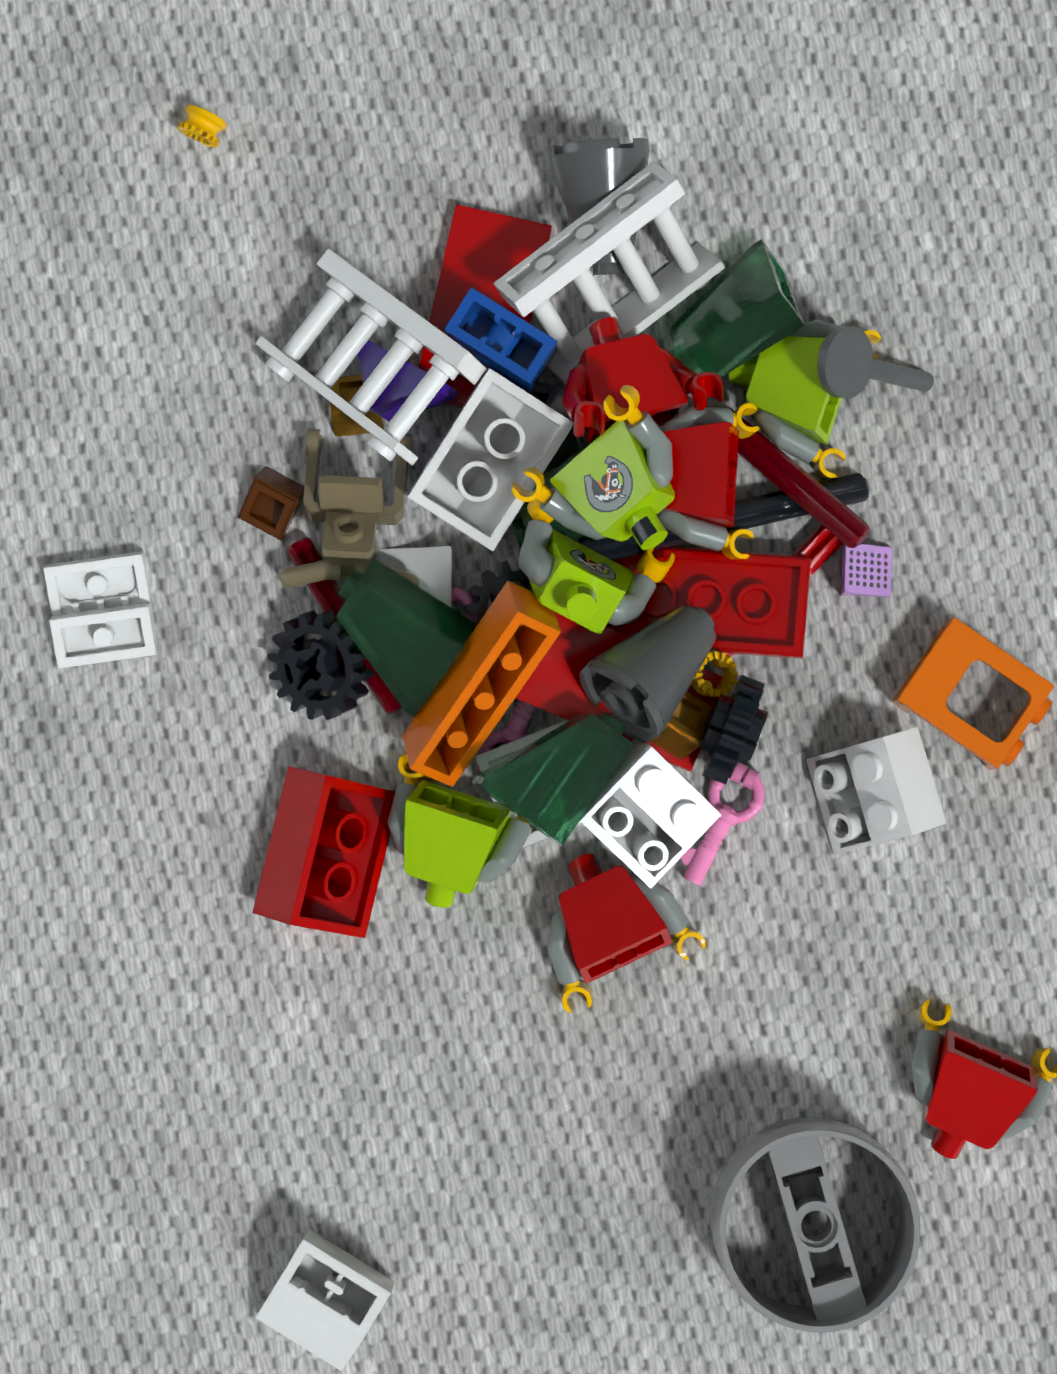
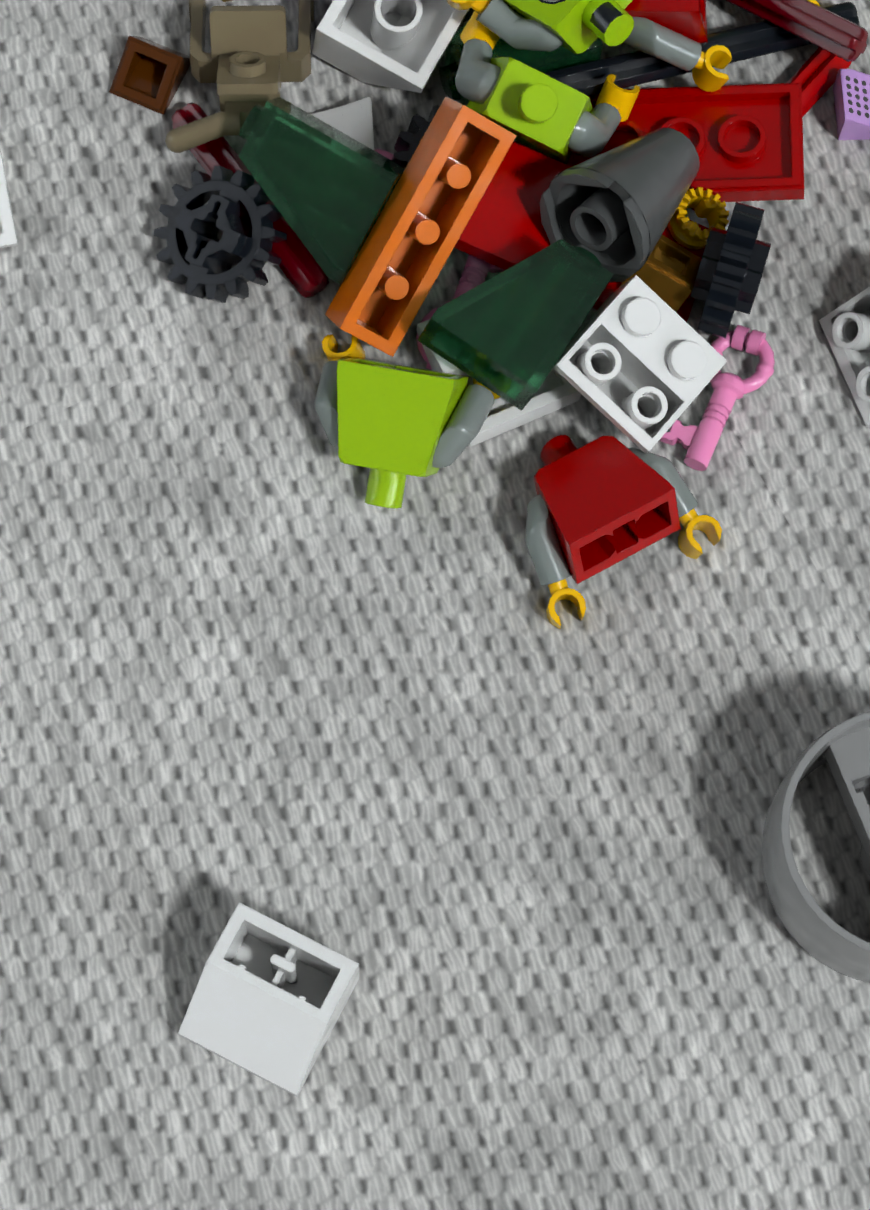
camera: 15 degrees left, 15 degrees down
(325, 853) = (238, 451): red slope -> none

